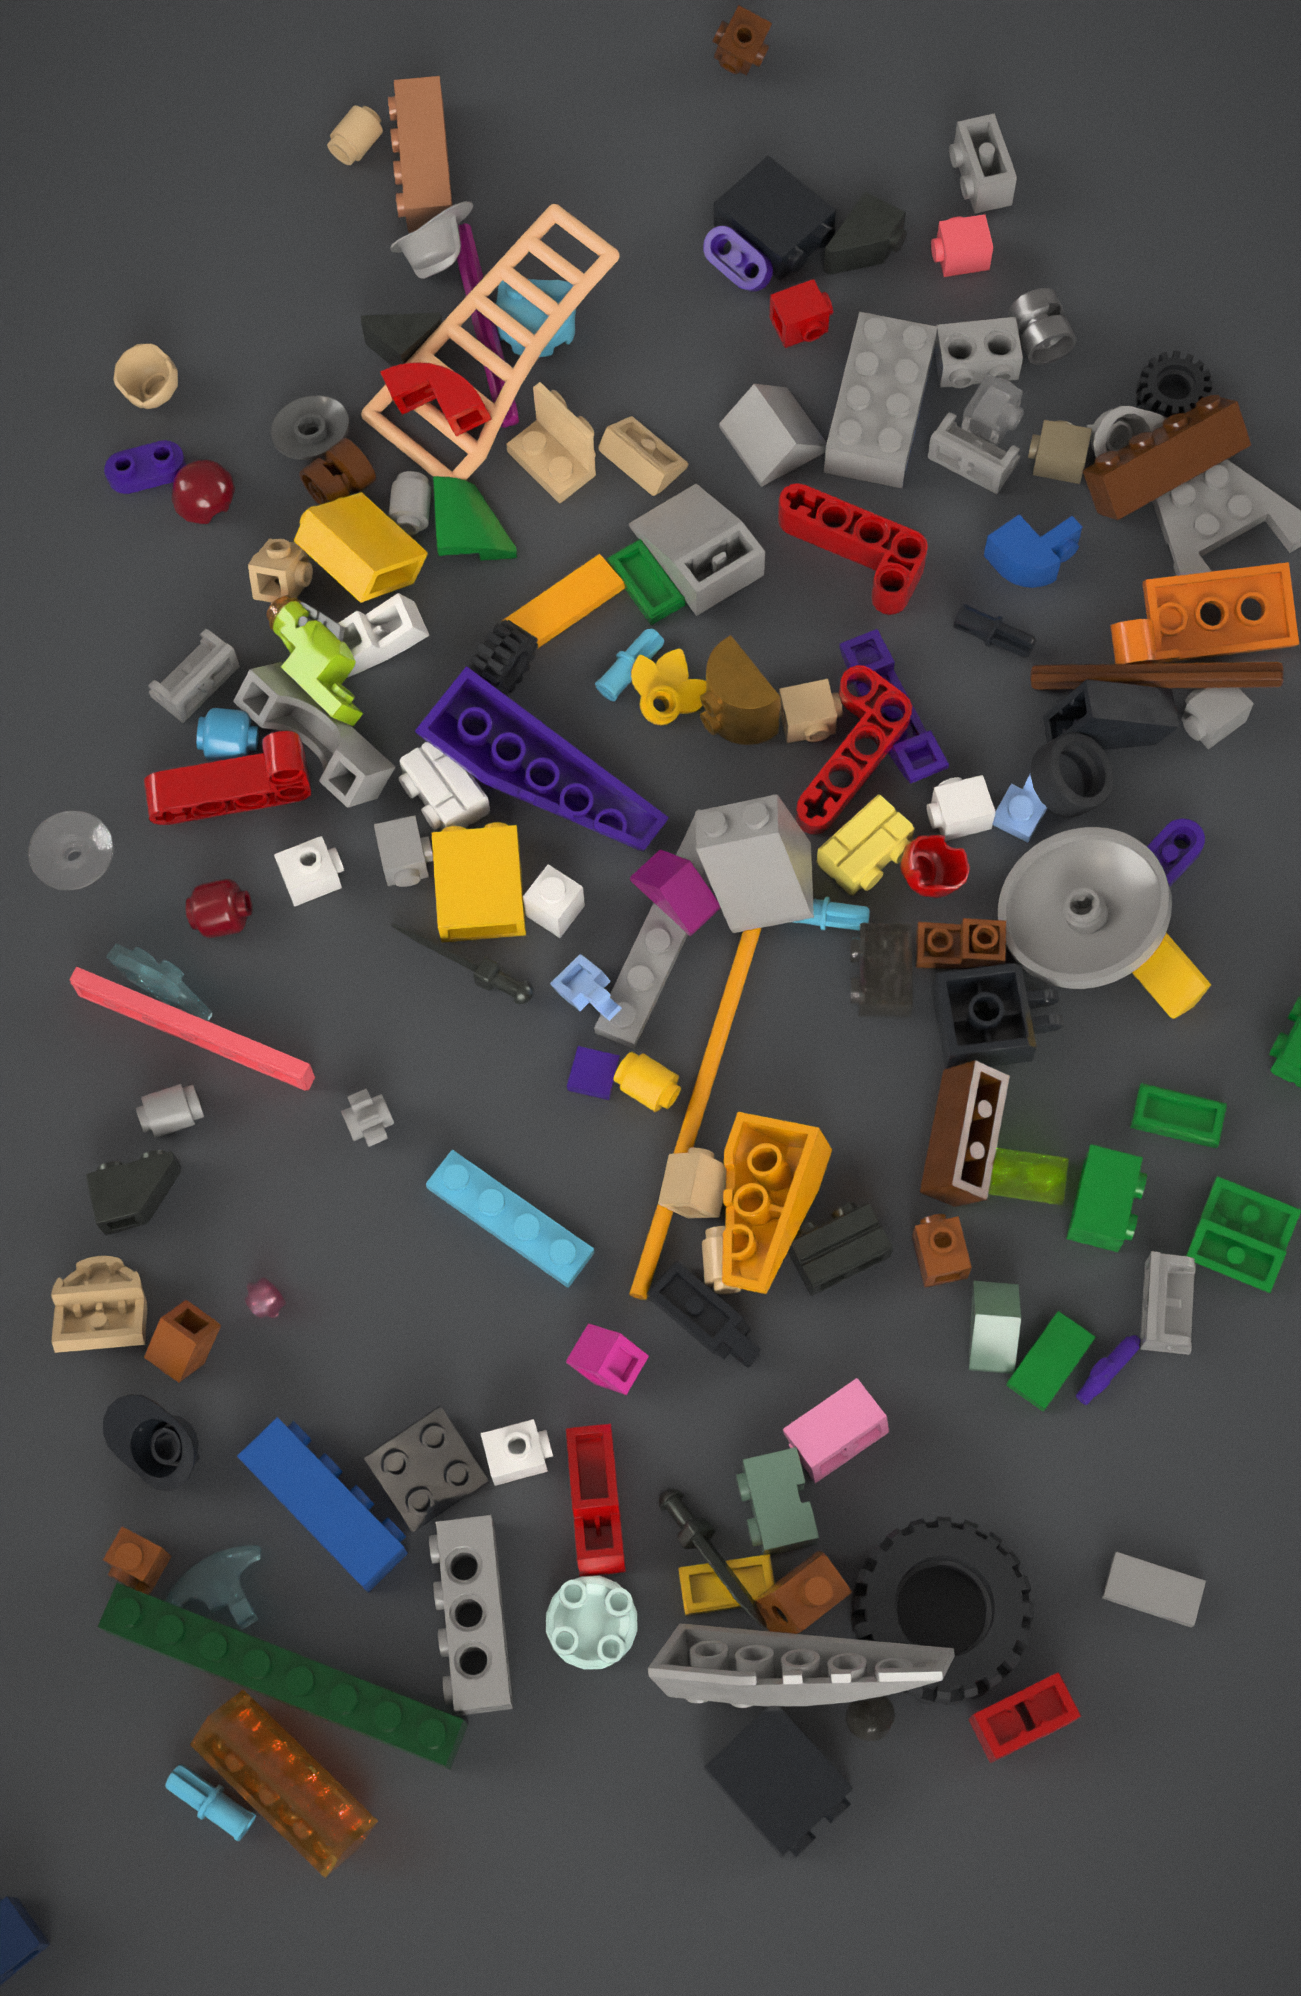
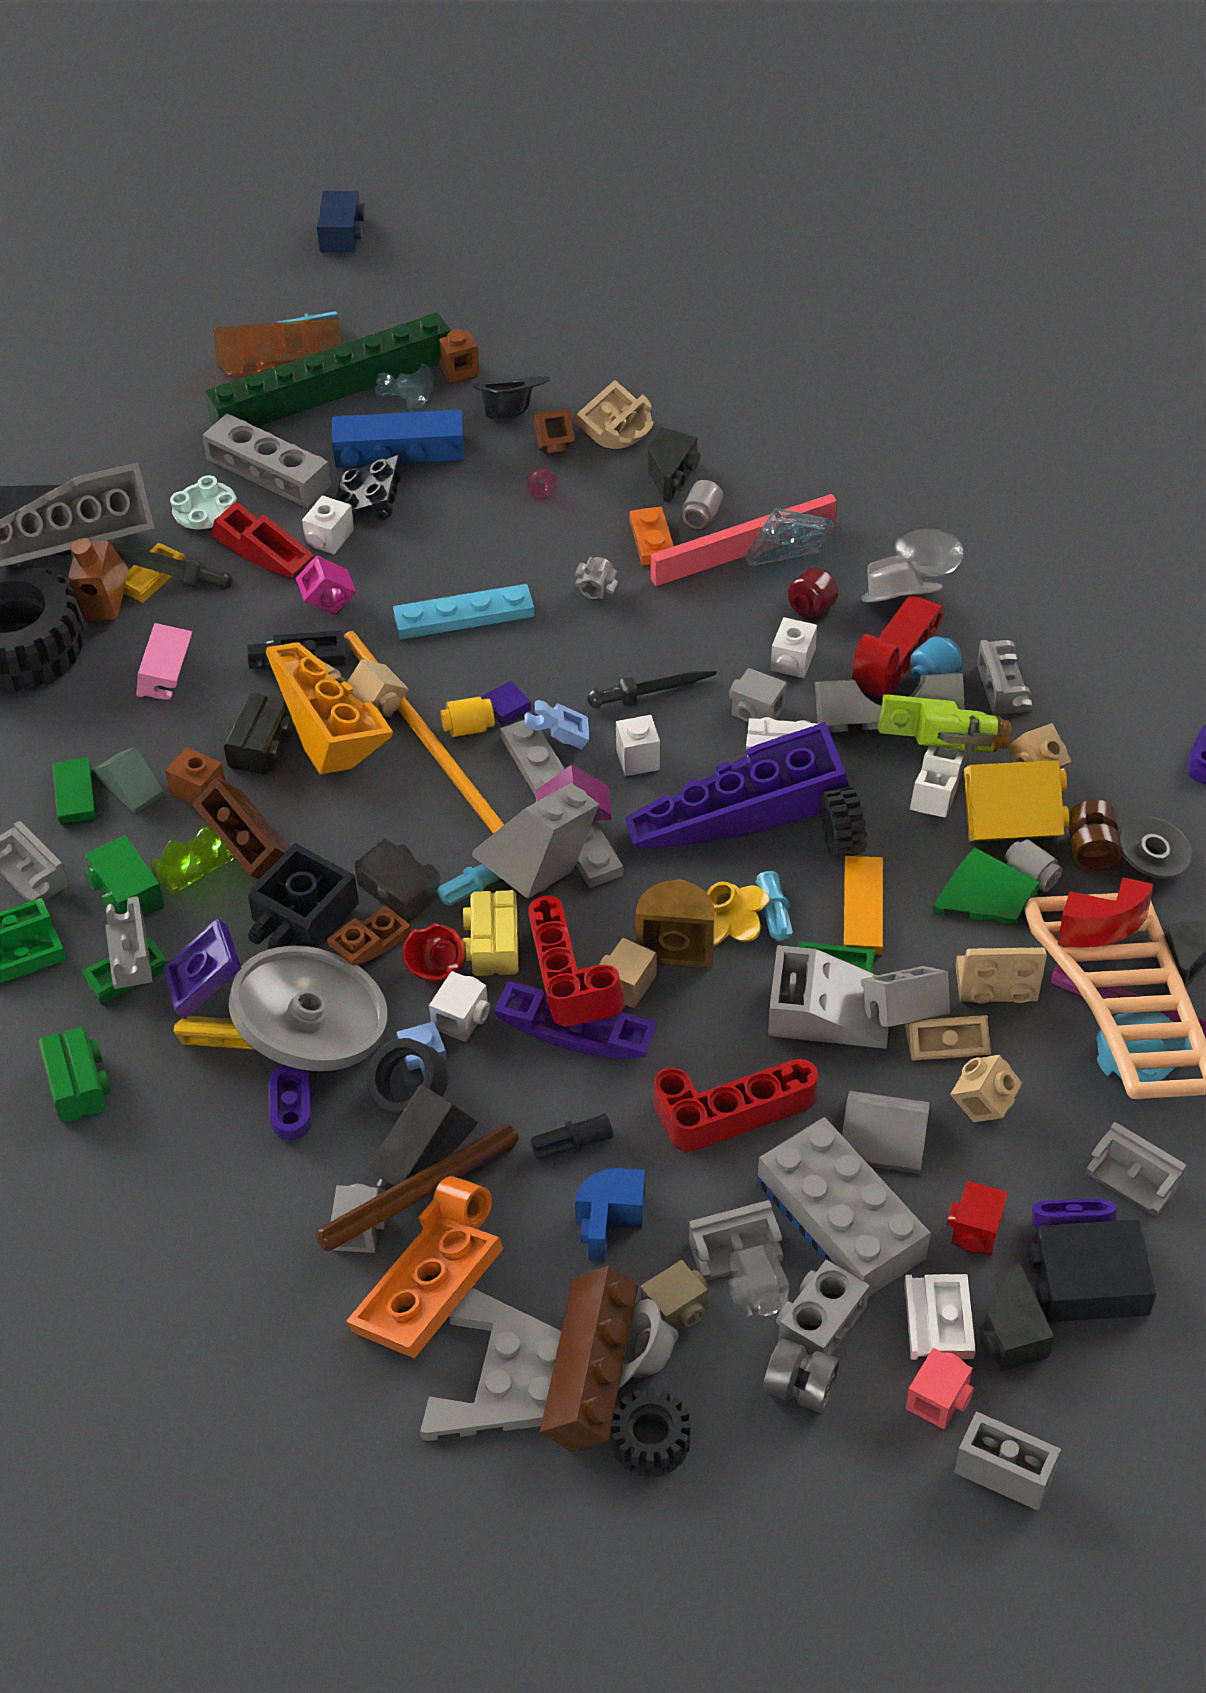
camera: 130 degrees right, 20 degrees down
(148, 838) = (895, 578): none -> light grey piece
(202, 491) = (1158, 767): dark red hair -> none
(250, 1131) = (650, 532): none -> orange plate
(478, 882) = (696, 720): yellow brick -> none
(643, 487) = (907, 995): none -> light grey hinge
(658, 248) = (1136, 1169): none -> light grey hinge
(692, 383) = (986, 1088): none -> tan brick
(779, 1516) = (153, 603): sand green brick -> none
(905, 284) = (939, 1315): none -> white plate
(1107, 1369) = (34, 810): dark purple piece -> none
(1134, 1023) = (201, 968): none -> dark purple plate
(1169, 1112) = (128, 946): none -> light grey hinge

